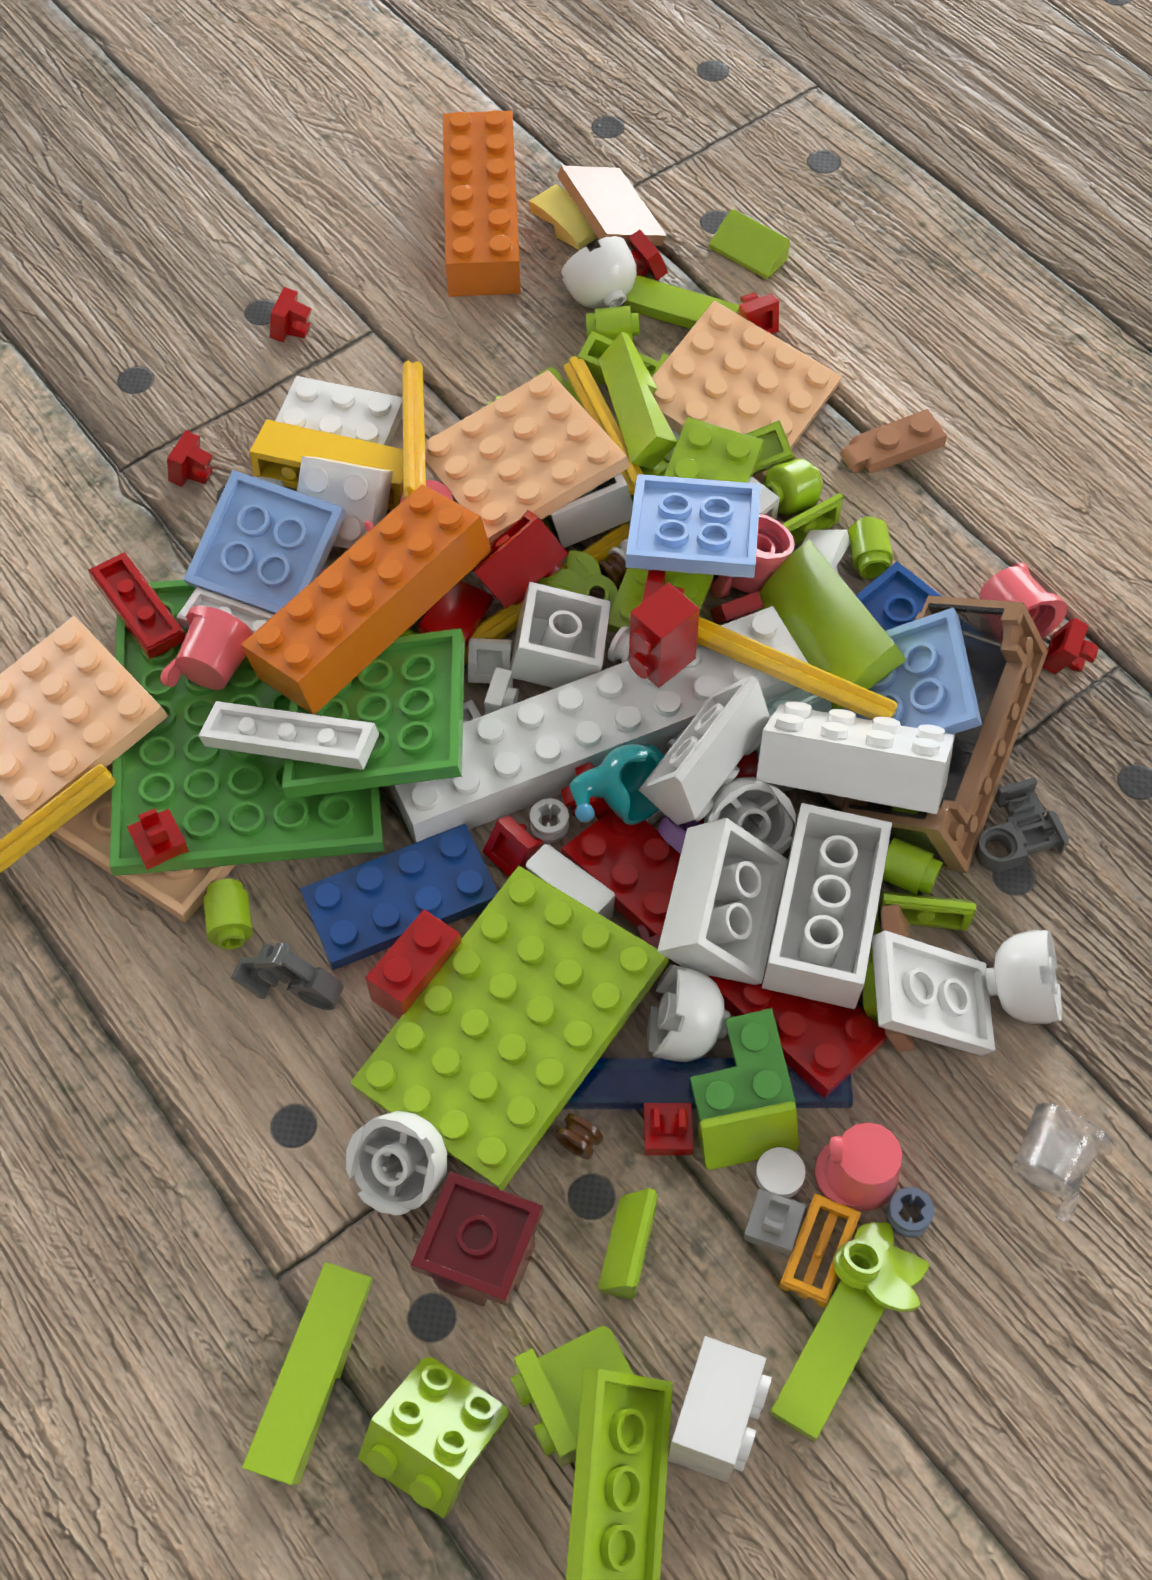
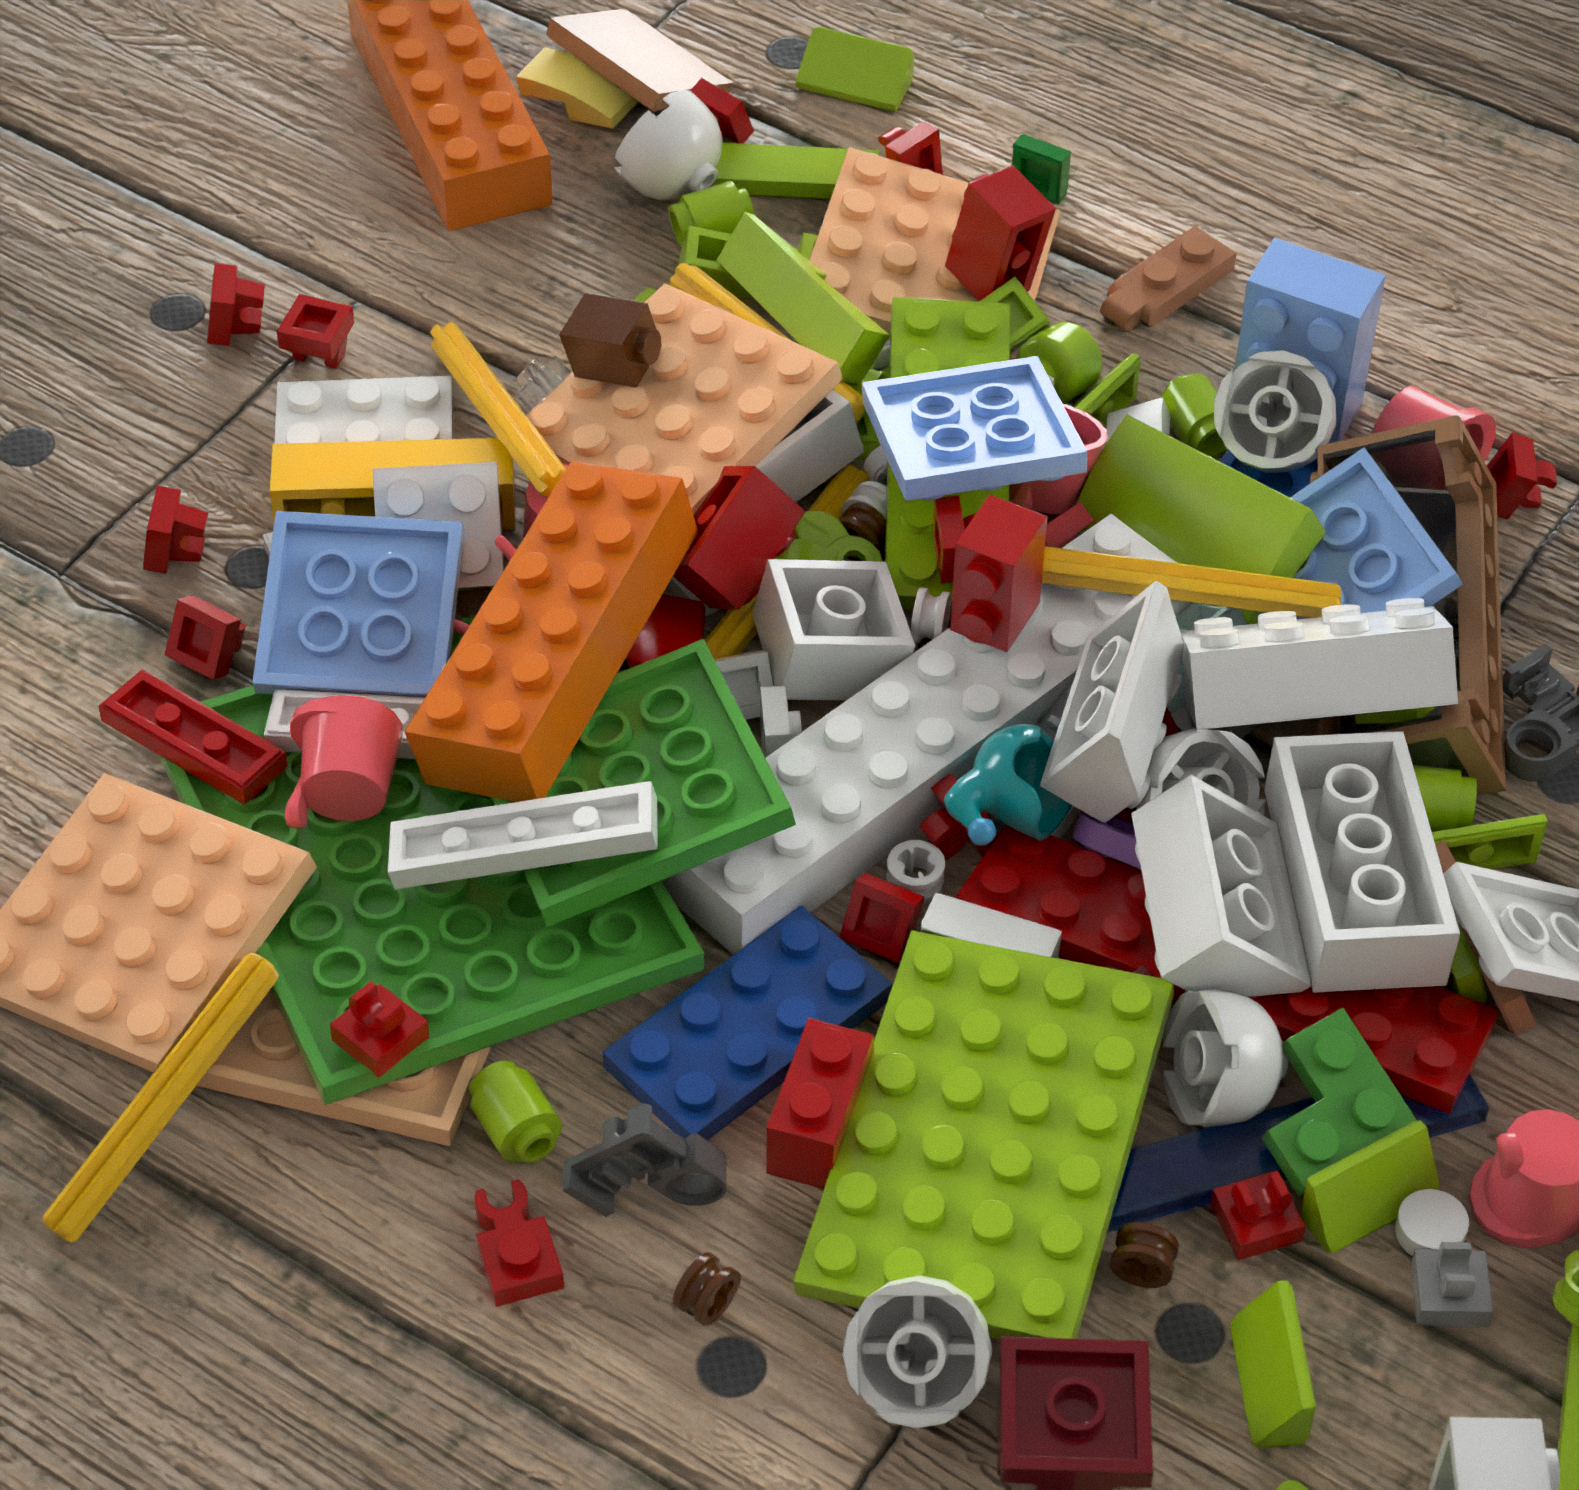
camera: 20 degrees left, 10 degrees down
(178, 537) = (204, 637): none -> red tile
(196, 1008) = (516, 1251): none -> red plate
(293, 1071) = (706, 1289): none -> reddish brown bush
(332, 346) = (316, 329): none -> red tile
(443, 418) = (539, 382): none -> clear plate
(490, 403) = (611, 340): none -> reddish brown brick
(778, 387) = (999, 232): none -> red brick
(805, 1288) = (1526, 1353): light orange tile -> none
(840, 343) = (1043, 166): none -> green tile
(910, 563) = (1275, 411): none -> white cylinder
(955, 515) = (1316, 311): none -> light blue brick

